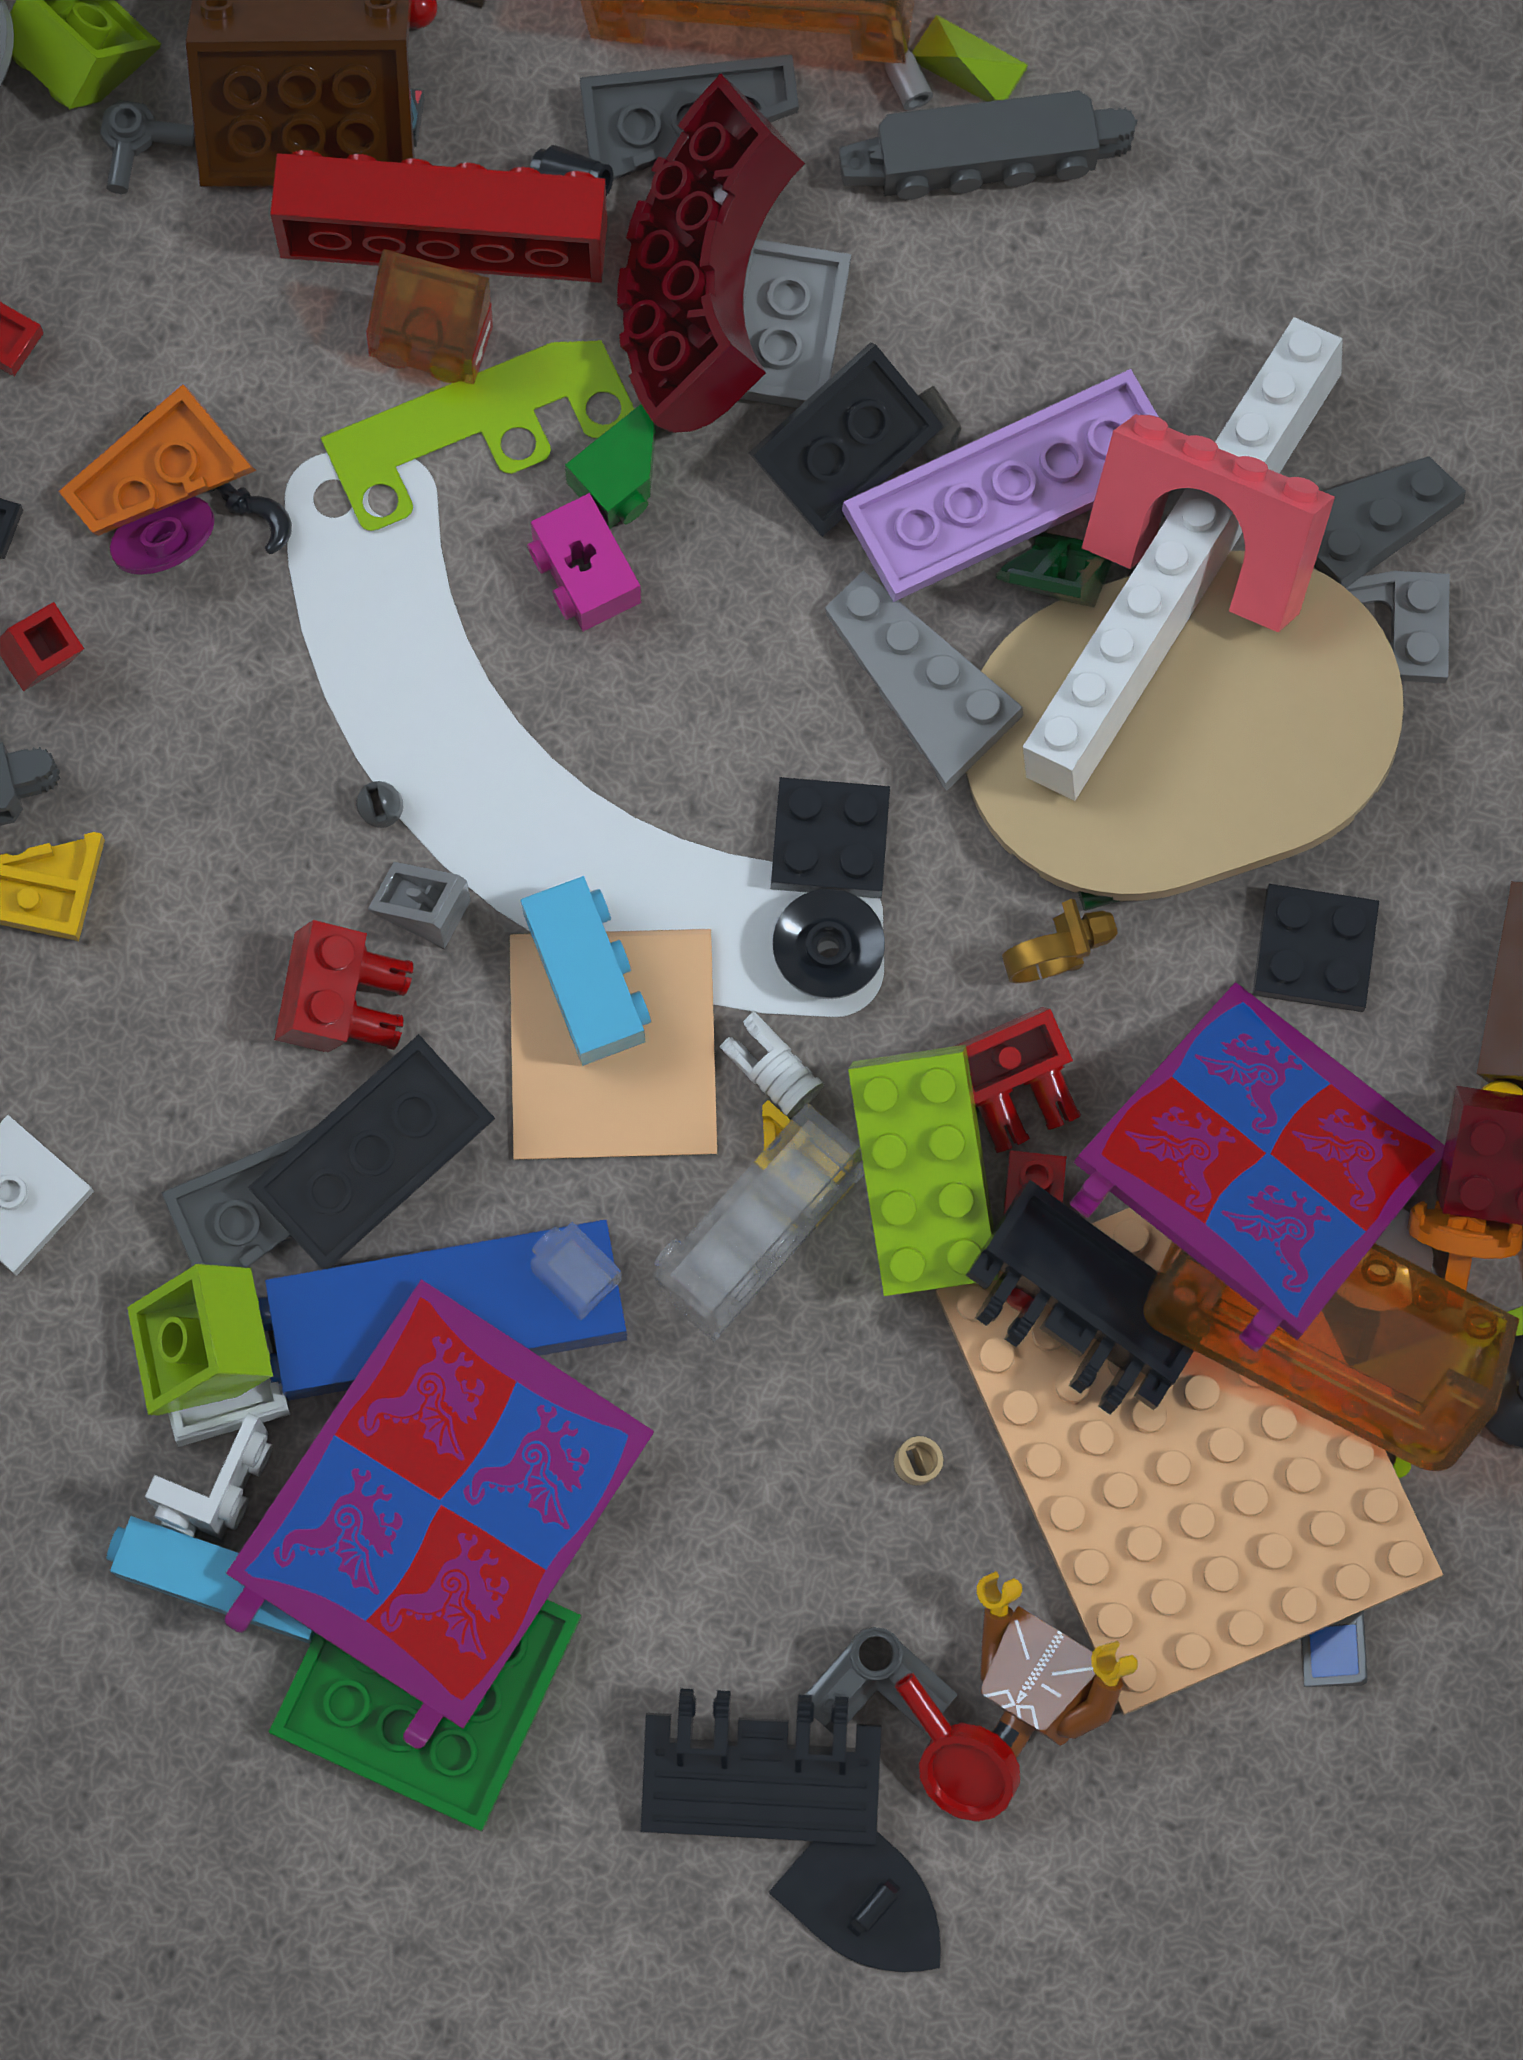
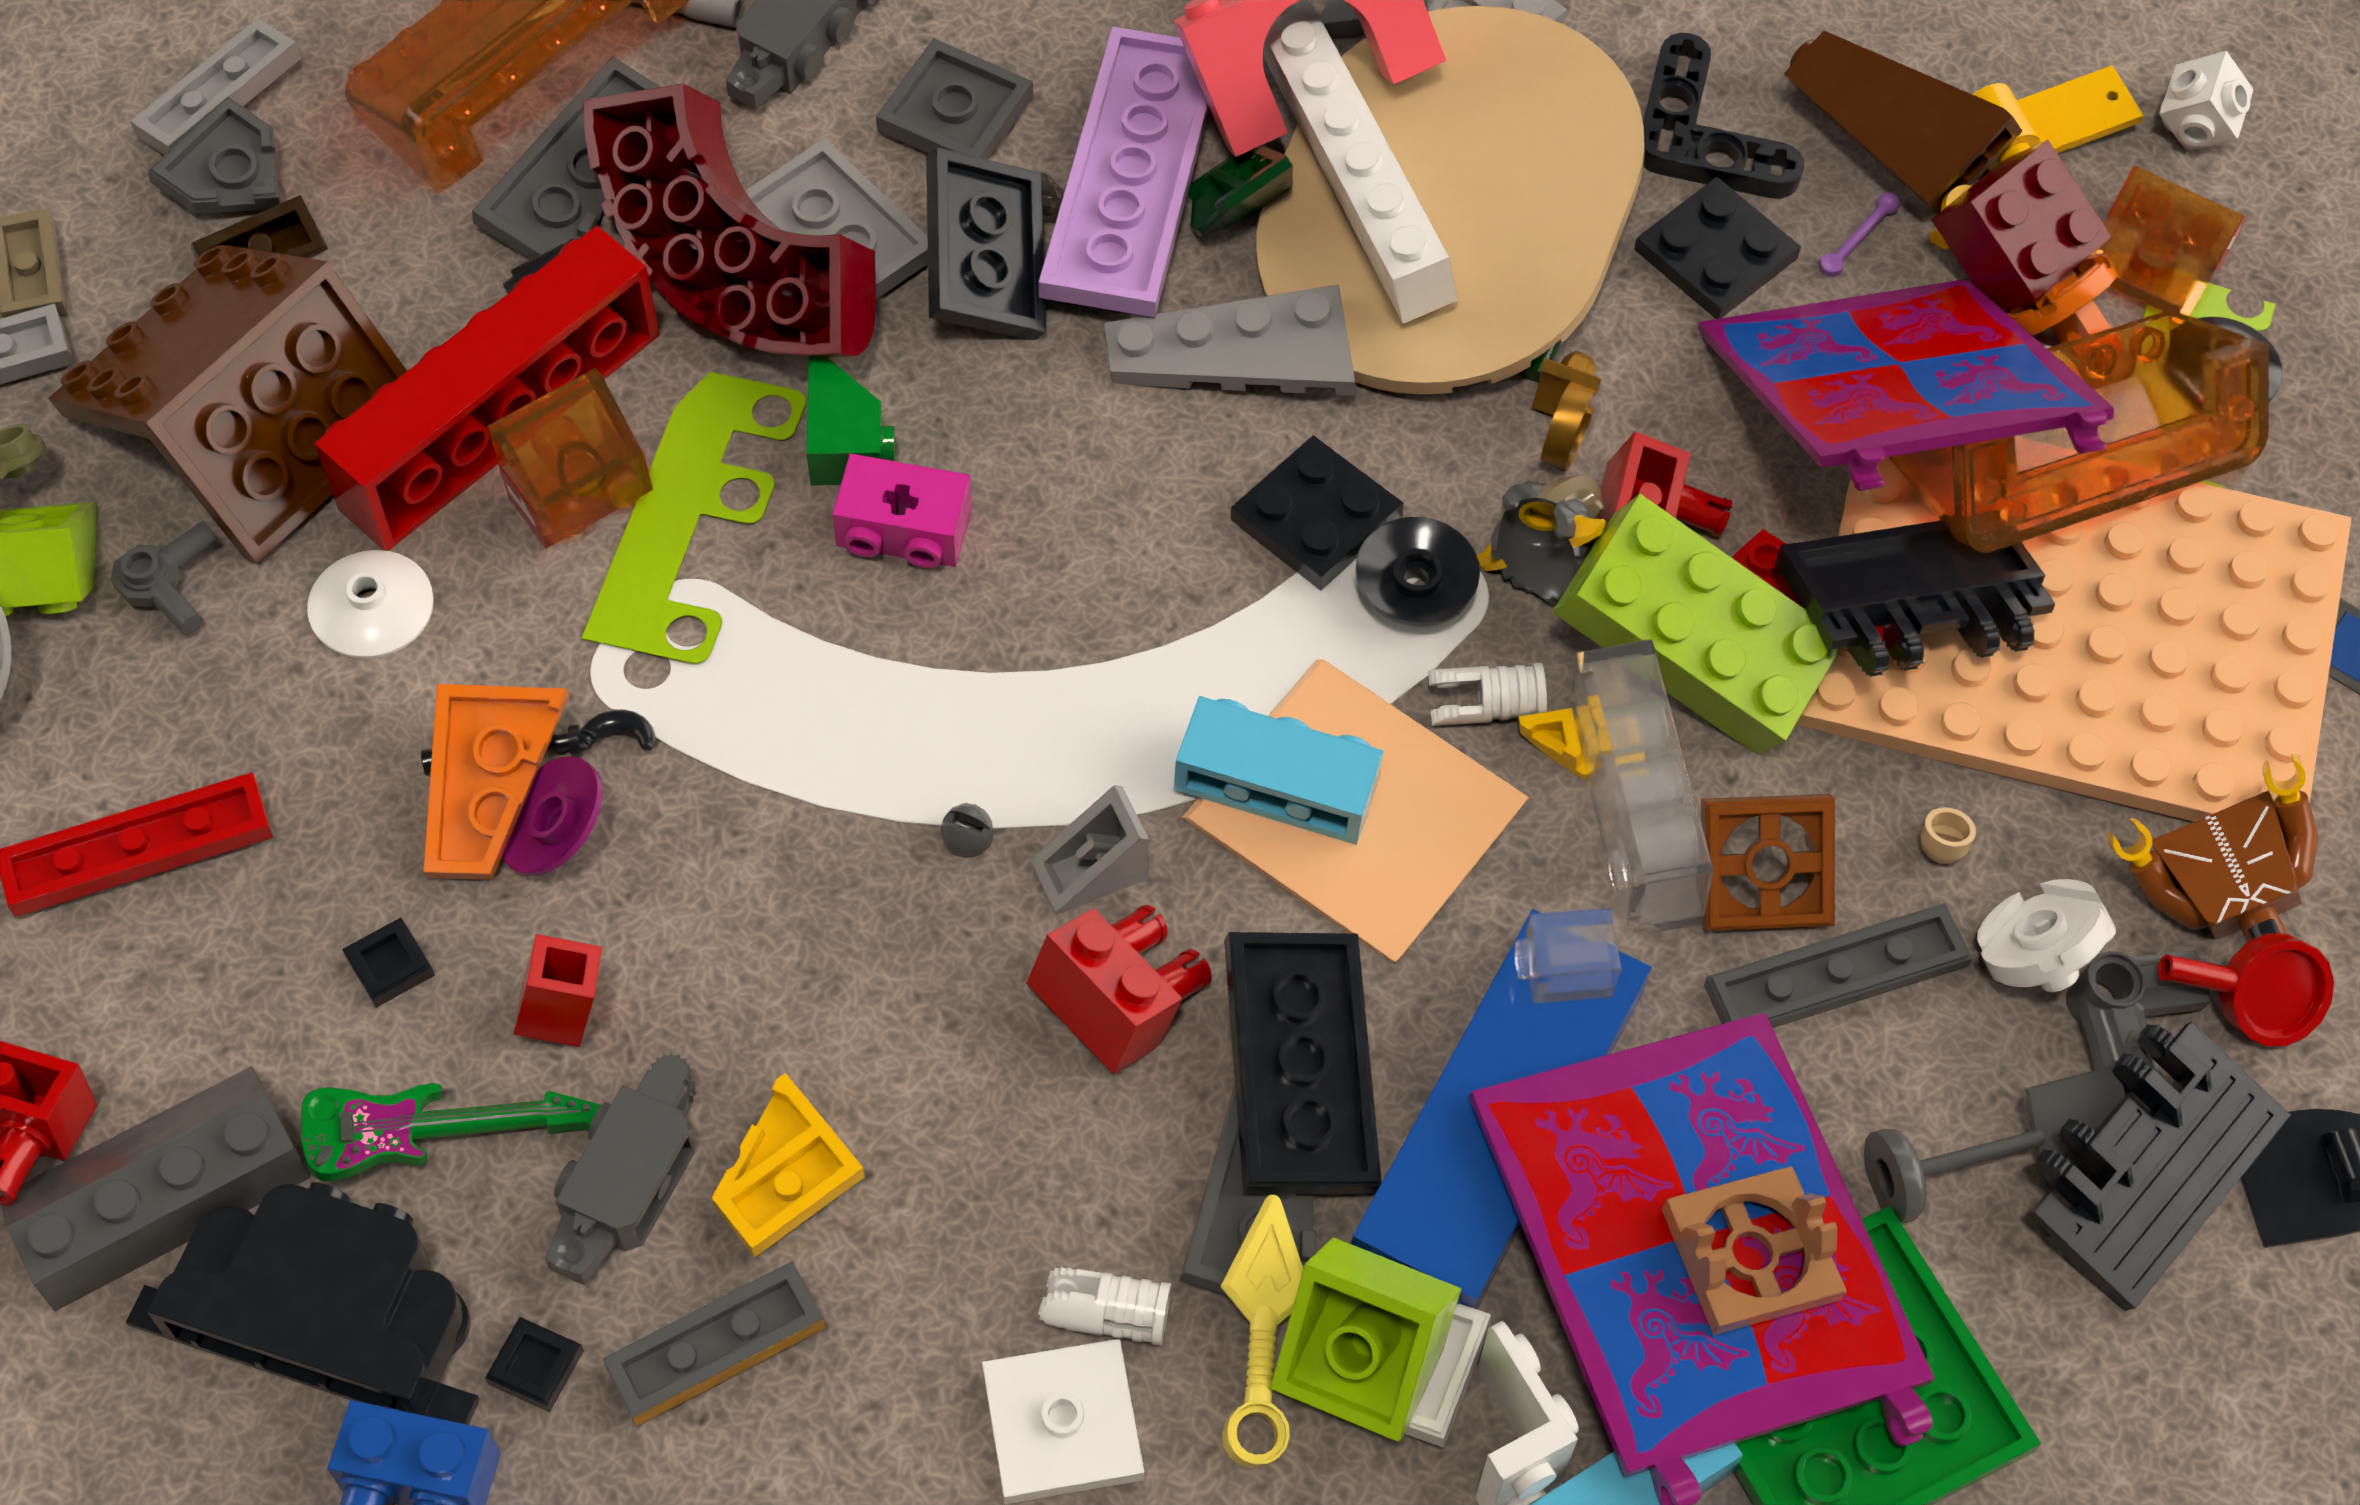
camera: 50 degrees left, 15 degrees down
(109, 1169) = (1106, 1305): none -> white hinge
(188, 1242) = (1264, 1289): none -> light yellow piece
(236, 304) = (376, 623): none -> white dish
(394, 1552) = (1707, 1269): none -> medium nougat piece
(731, 1352) = (1817, 901): none -> dark orange piece
(749, 1460) = (1841, 969): none -> dark grey tile
(753, 1686) = (1900, 1175): none -> dark grey piece
(898, 1601) = (2045, 936): none -> white plate
(932, 1007) = (1545, 534): none -> dark grey hair
(964, 317) = (954, 103): none -> dark grey plate
(1377, 1041) = (1832, 263): none -> medium lavender hinge
(1403, 861) = (1693, 141): none -> black beam

